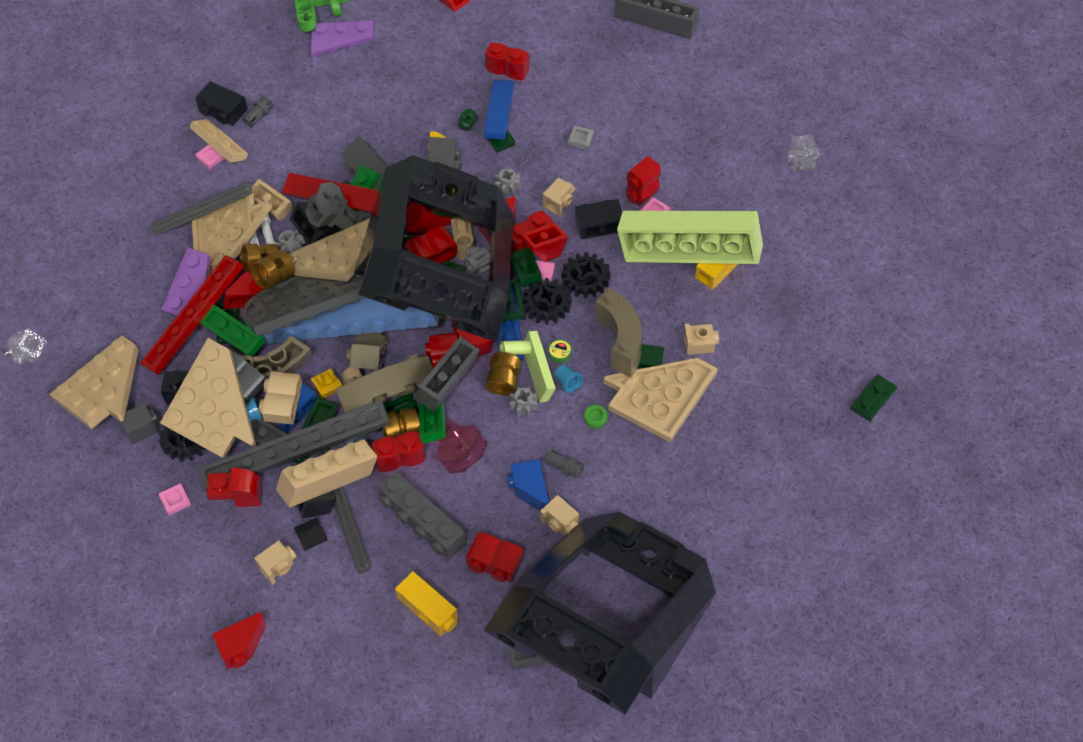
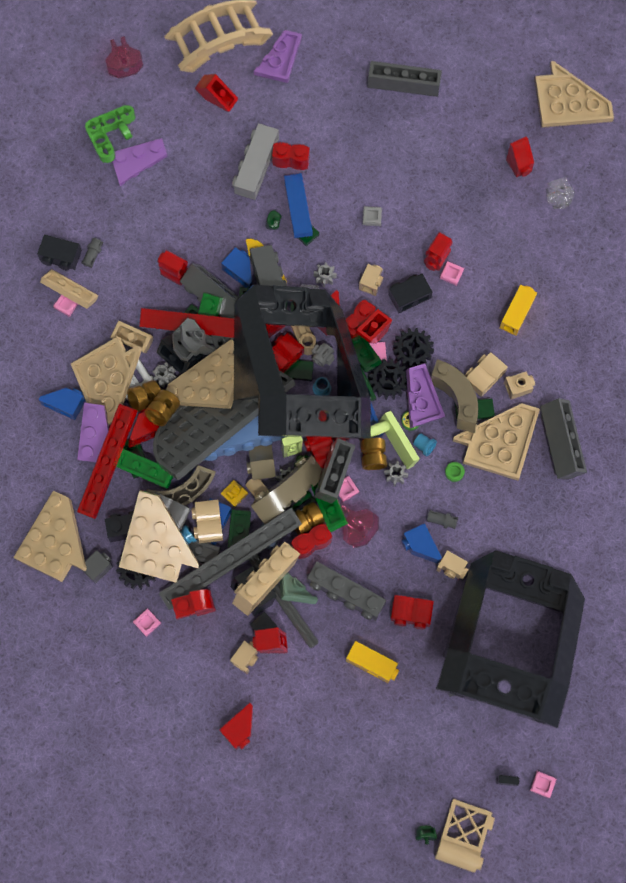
camera: 15 degrees left, 15 degrees up
(167, 247) = (64, 401): none -> blue slope
(201, 208) = (81, 361): dark grey axle -> none
(310, 547) = (270, 641): none -> red slope
(336, 136) = (172, 266): none -> red brick
(359, 501) = (295, 591): none -> sand green tile
(406, 337) = (291, 446): none -> yellowish green piece
(410, 146) = (238, 267): none -> blue slope
(459, 407) = (348, 489): none -> bright pink tile
(465, 59) = (255, 162): none -> light grey brick
(579, 327) = (422, 397): none -> medium lavender wing
(663, 319) = (486, 373): none -> tan brick
(691, 236) = (493, 300): yellowish green brick -> none
(736, 406) = (563, 439): none -> dark grey brick
(766, 107) = (520, 157): none -> red slope
(840, 68) = (569, 101): none -> tan wing

